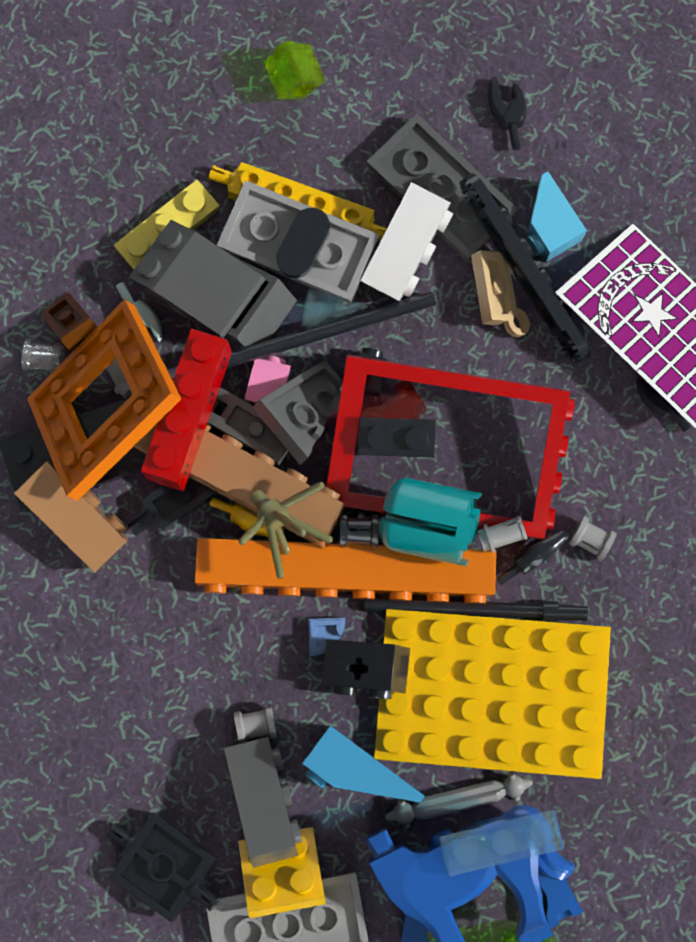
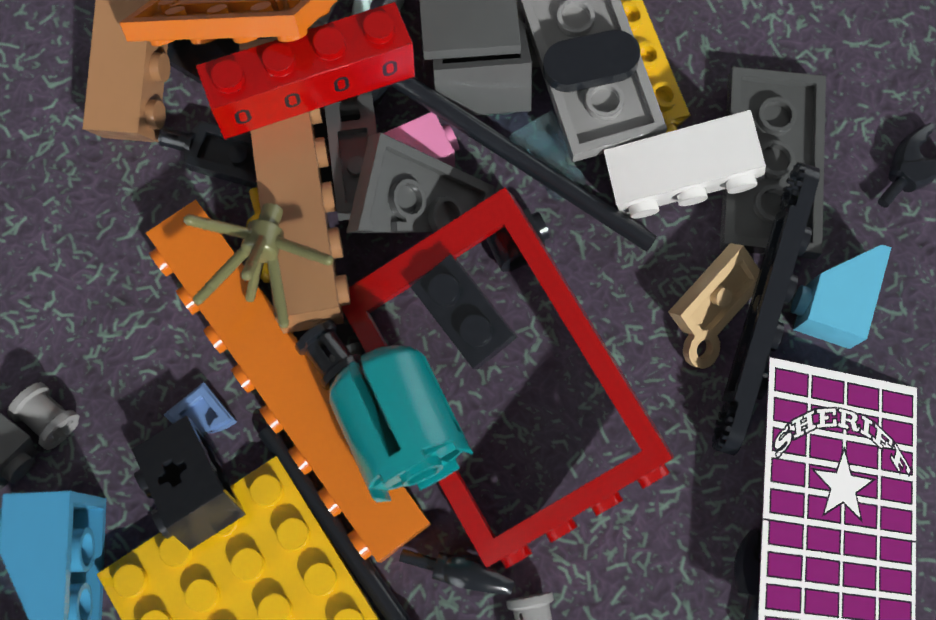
camera: 50 degrees right, 5 degrees down
(404, 405) = (510, 299): clear red leg -> none
(502, 534) = (450, 514): light grey pin -> none

